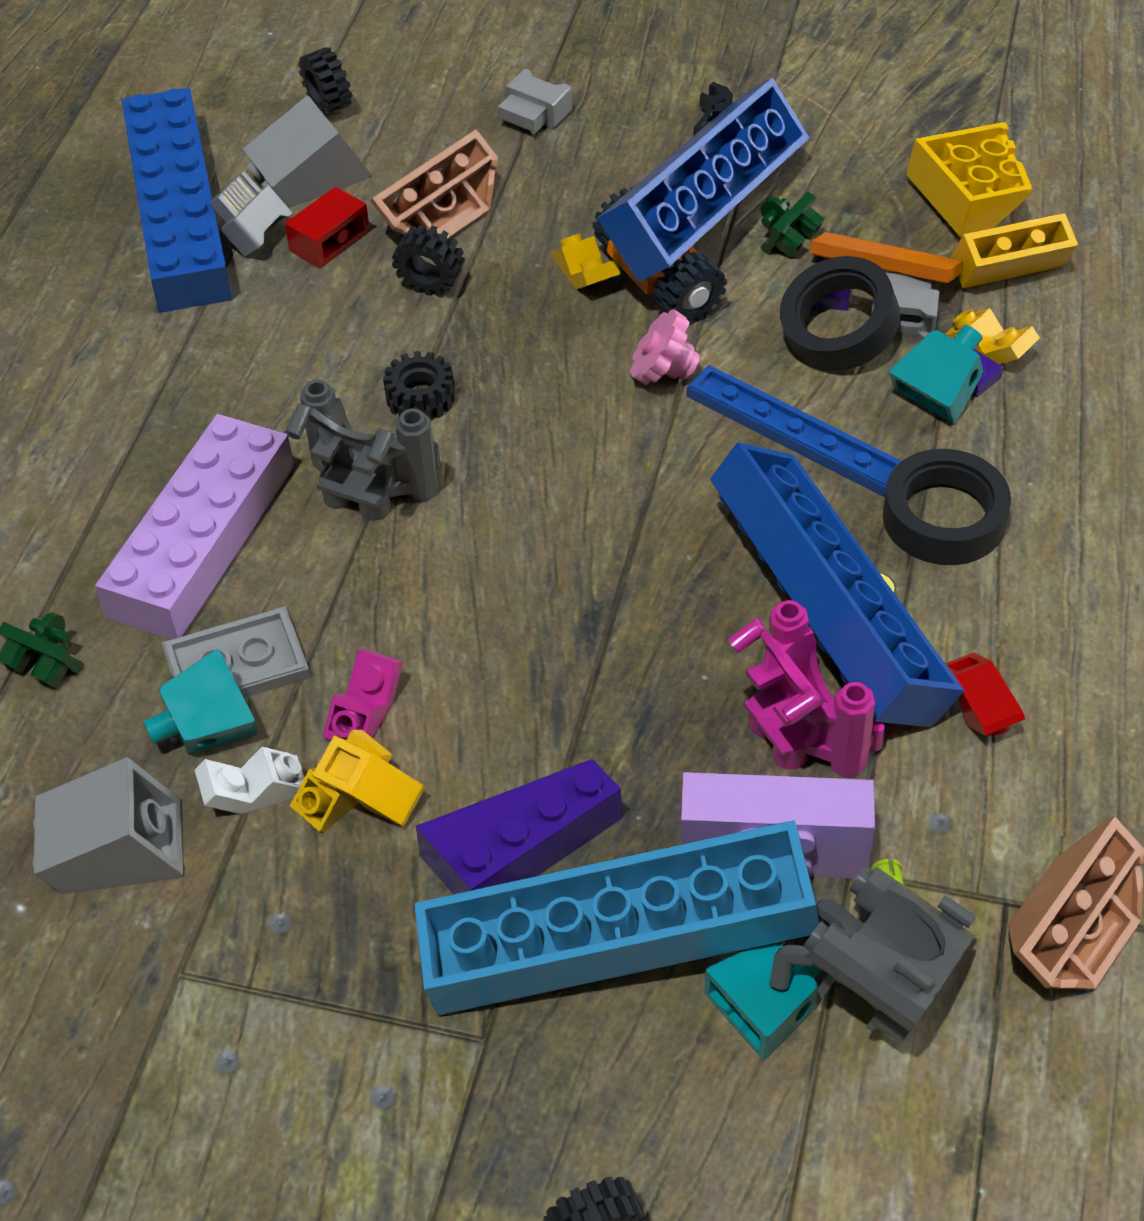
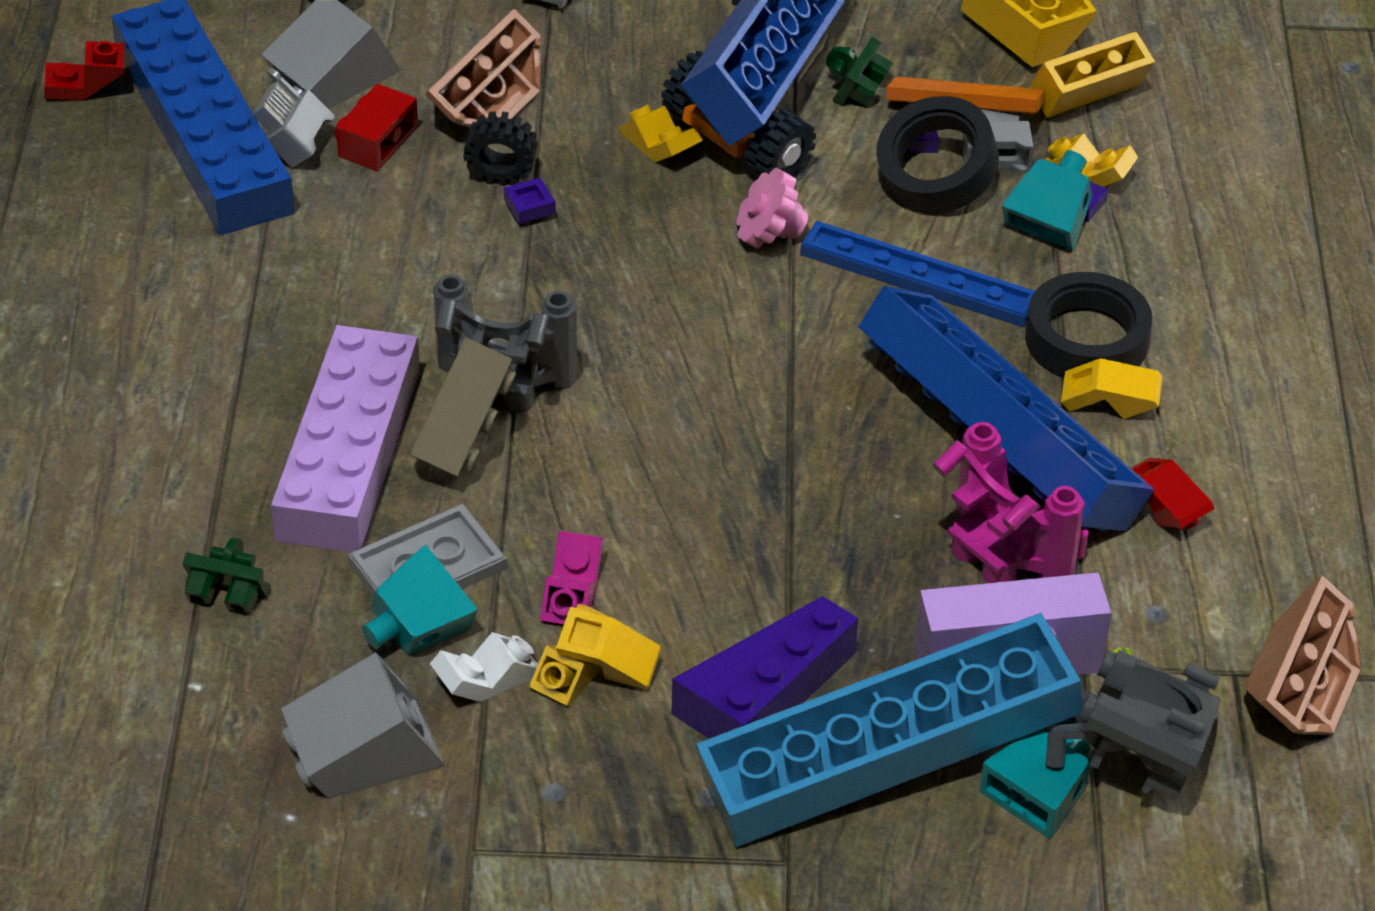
camera: 15 degrees left, 5 degrees down
(81, 156) = (76, 81): none -> red slope
(302, 513) = (463, 408): none -> dark tan brick
(419, 371) = (526, 261): black tyre -> none
(444, 313) = (529, 200): none -> dark purple plate
(962, 573) = (1122, 385): none -> yellow slope

